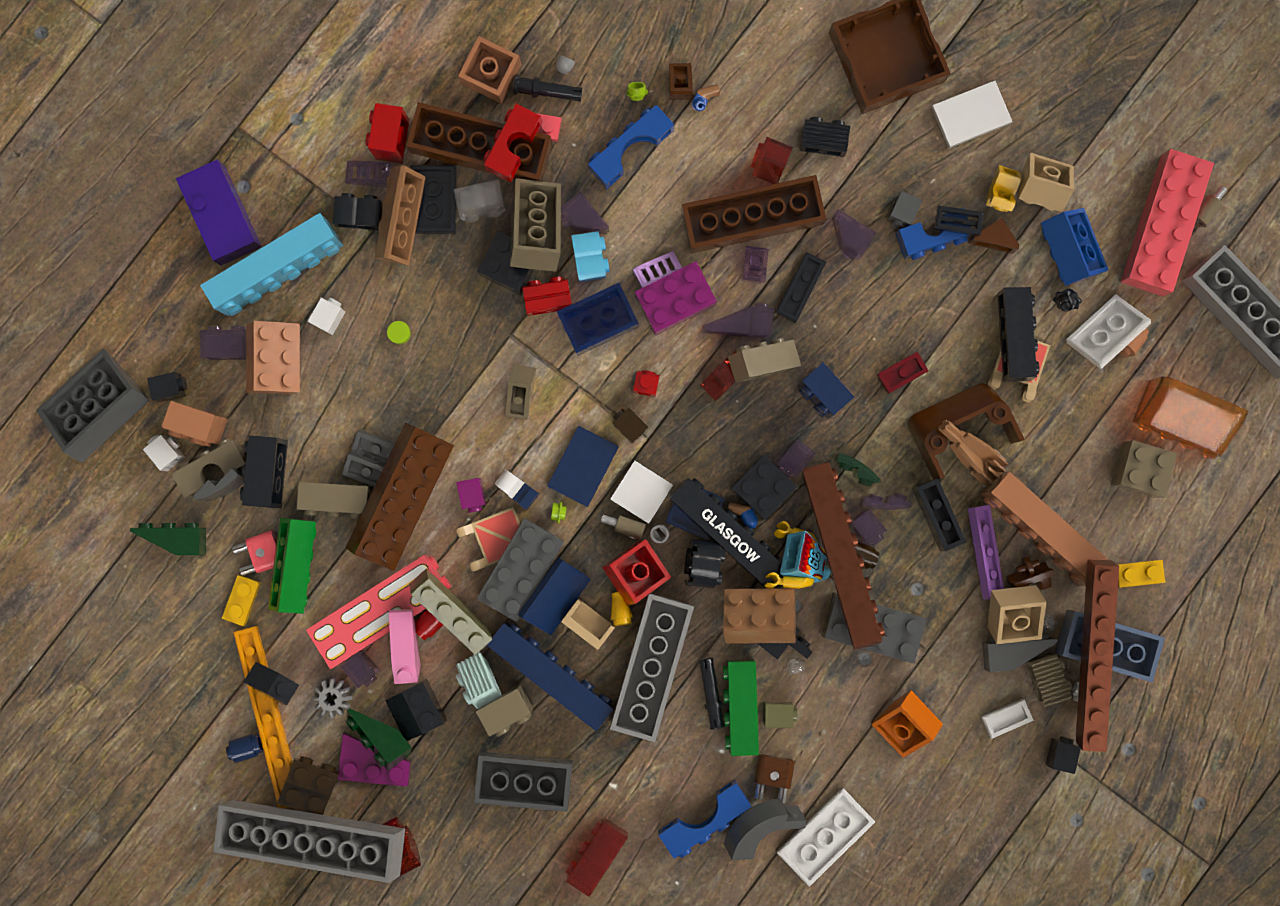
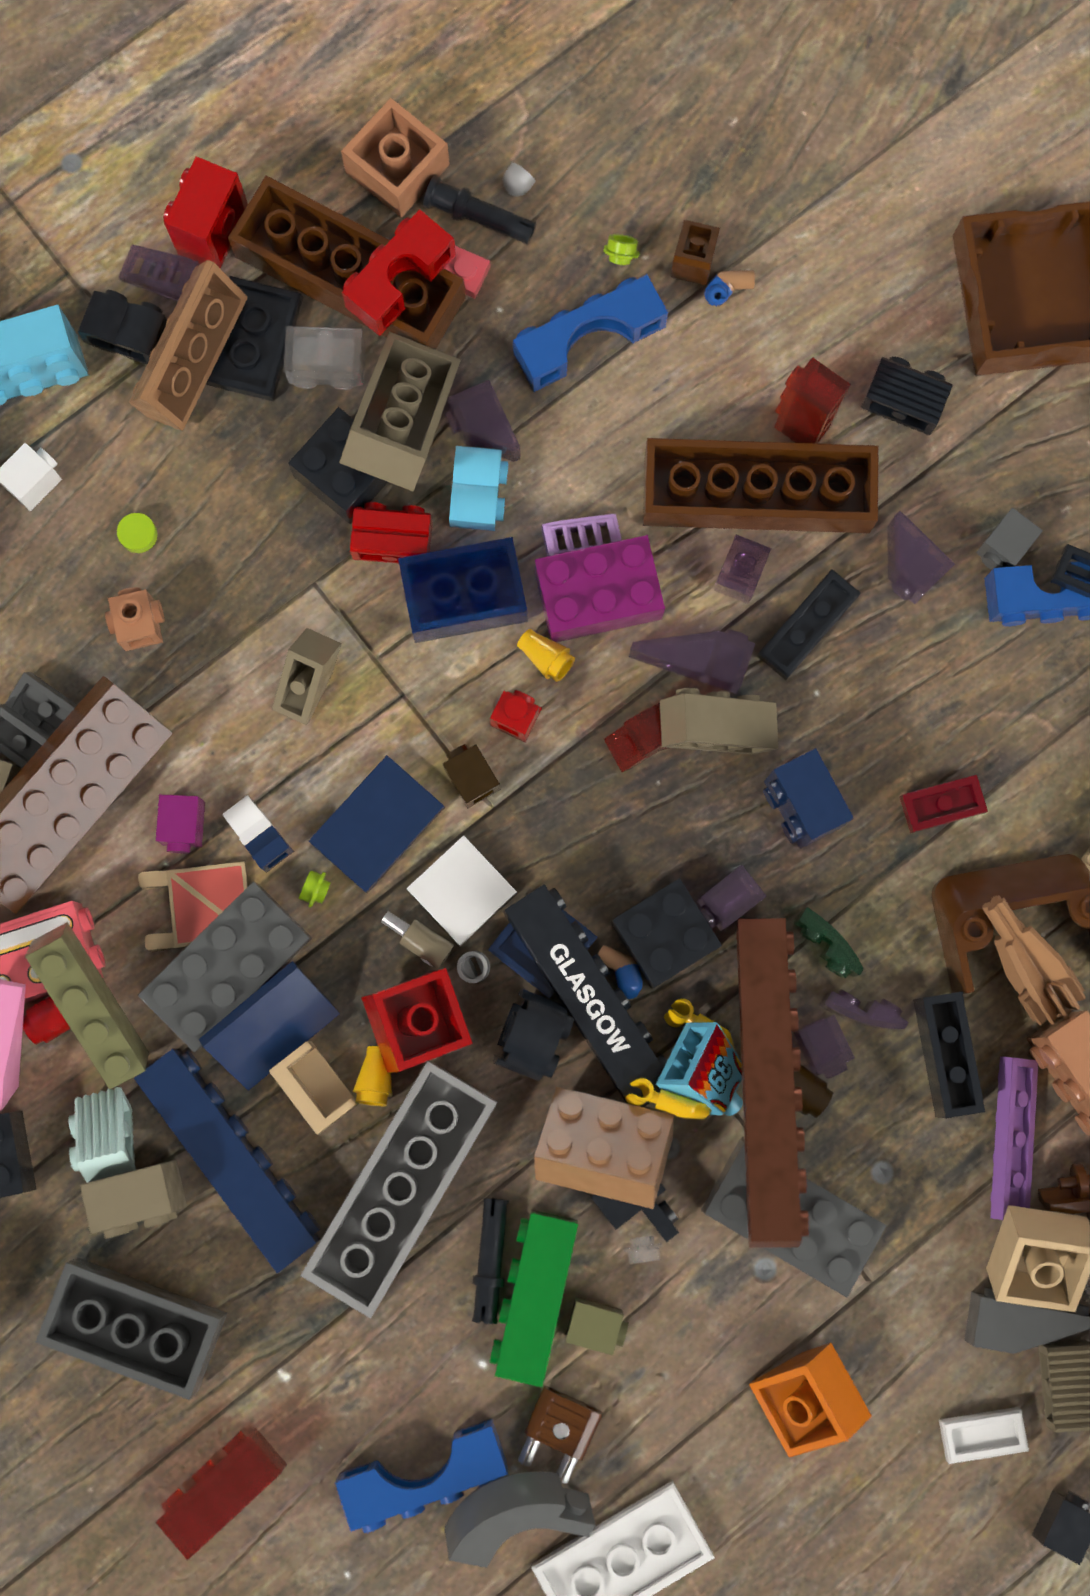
camera: 15 degrees right, 5 degrees down
(416, 391) = (135, 618): none -> nougat brick
(655, 344) = (547, 655): none -> yellow cone

